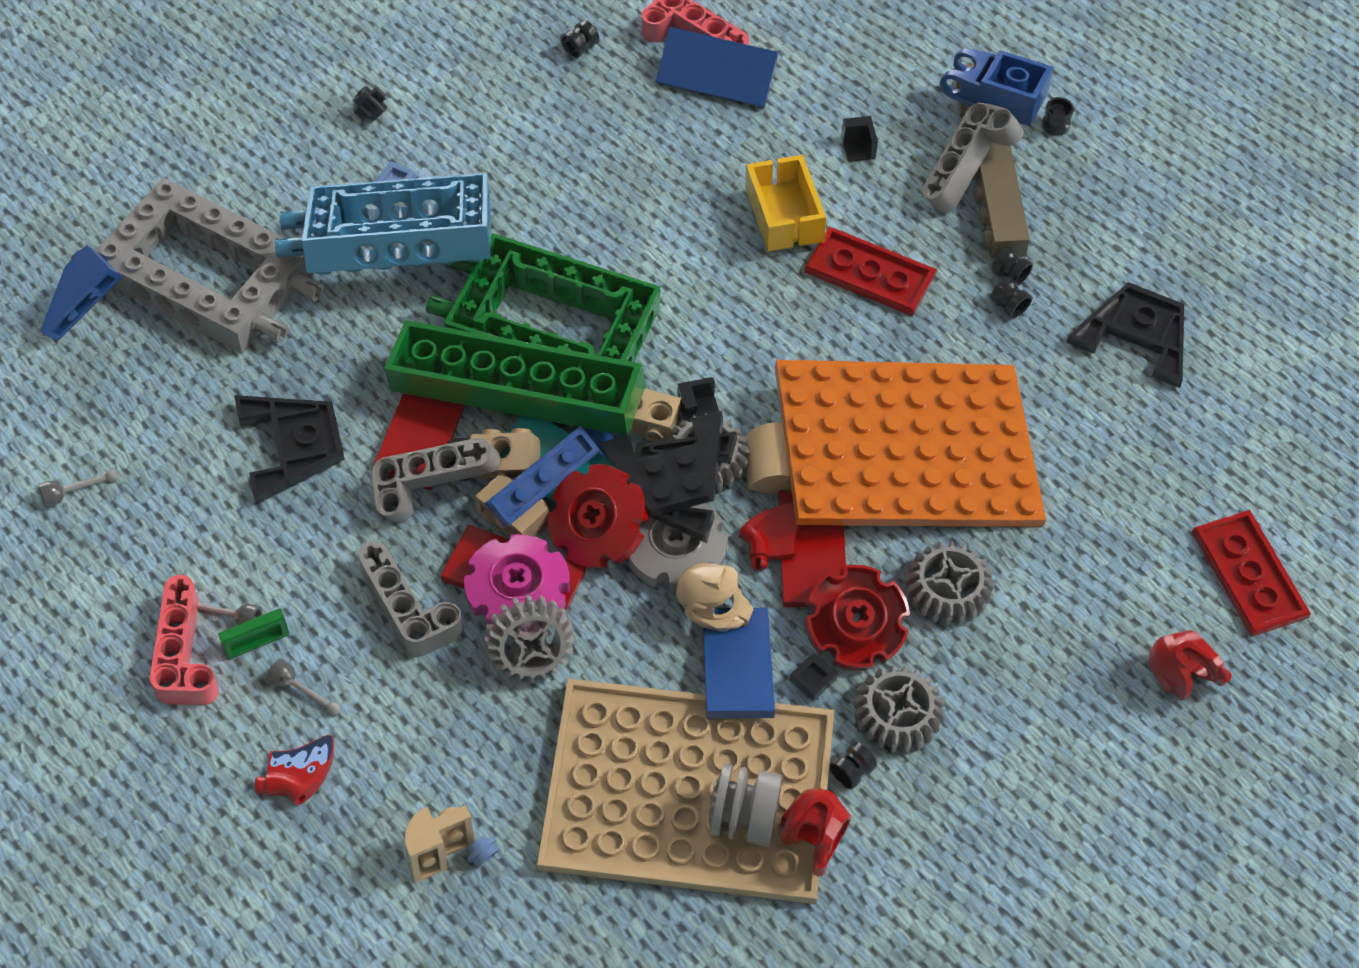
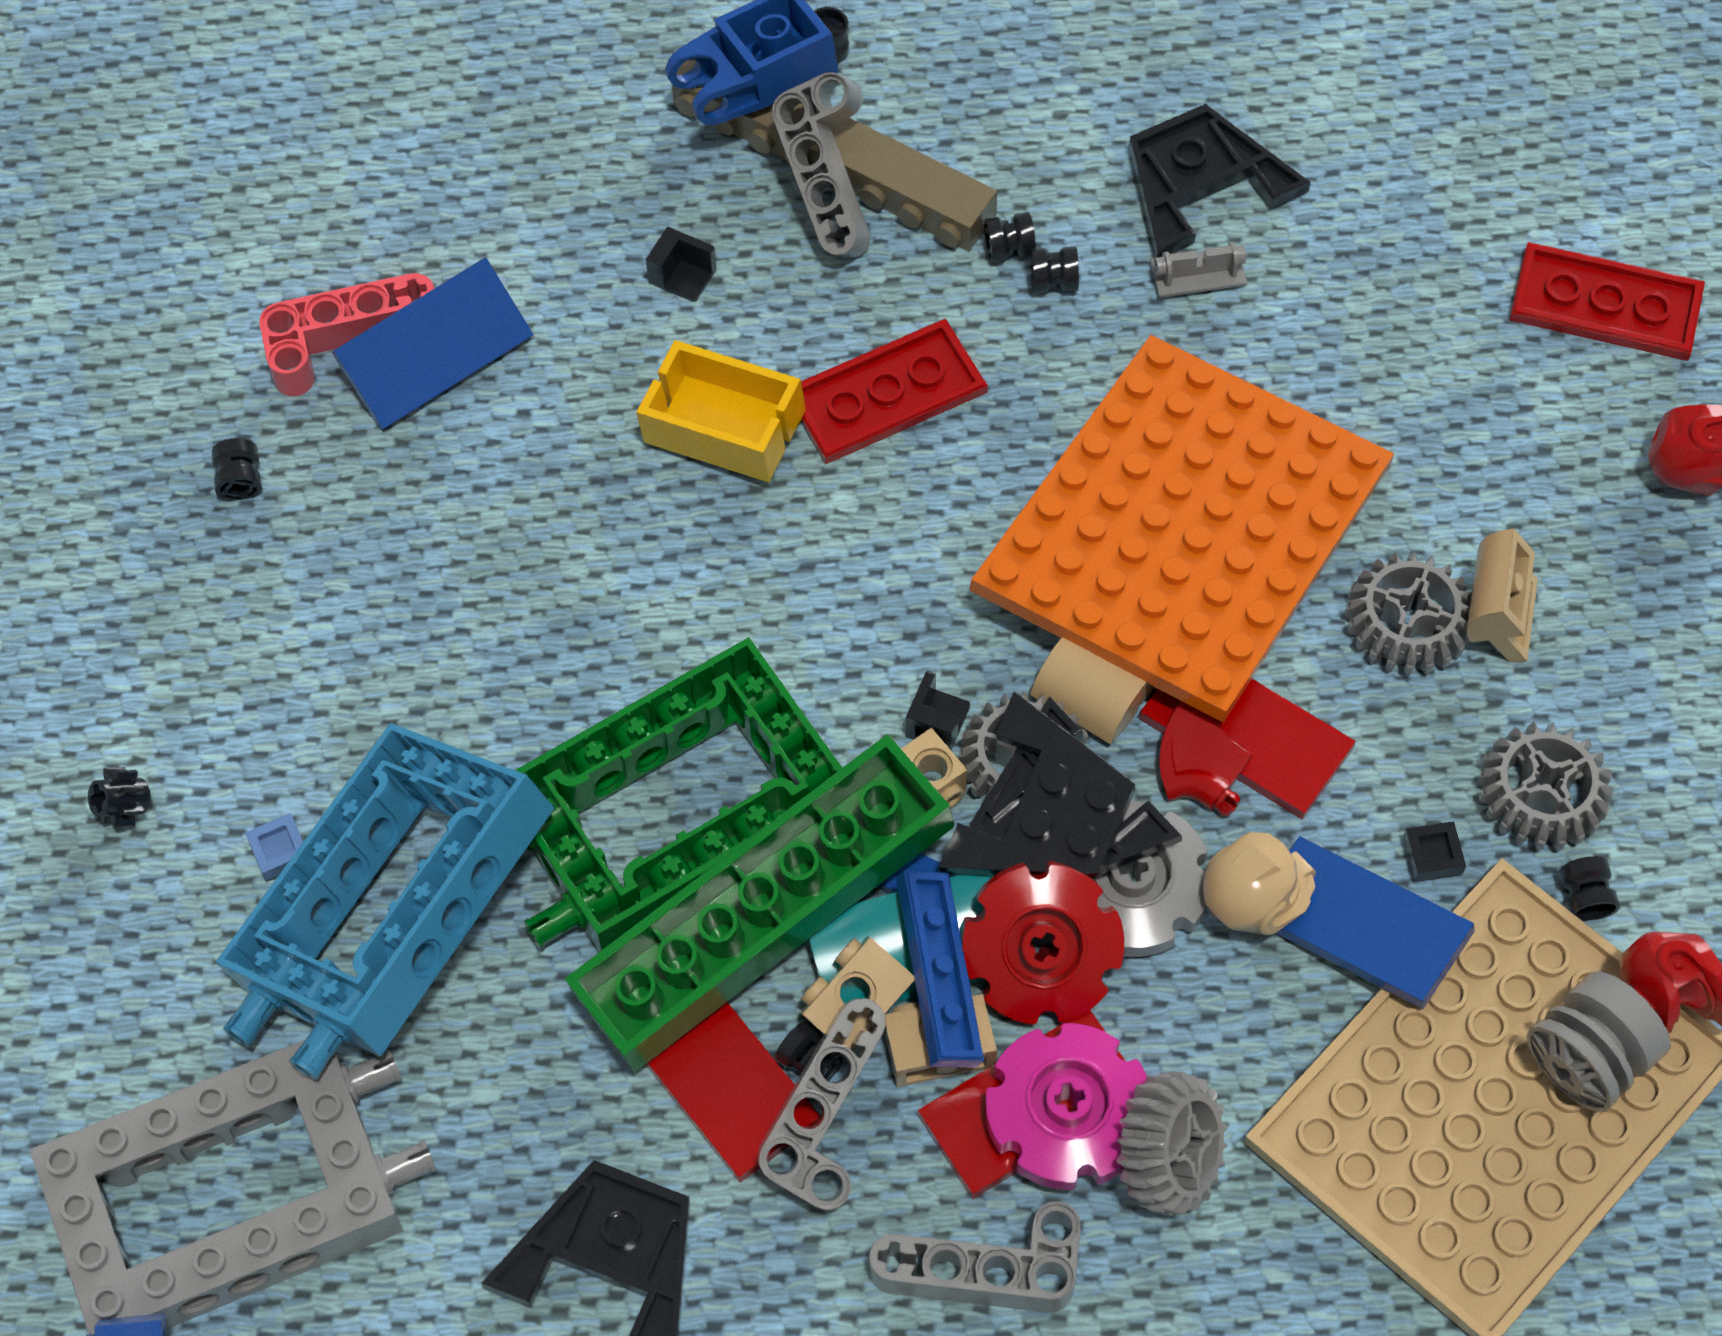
camera: 50 degrees left, 5 degrees up
(875, 634) = (1392, 746): red piece -> none
(996, 619) = (1503, 595): none -> tan brick
(1076, 364) = (1199, 271): none -> light grey hinge

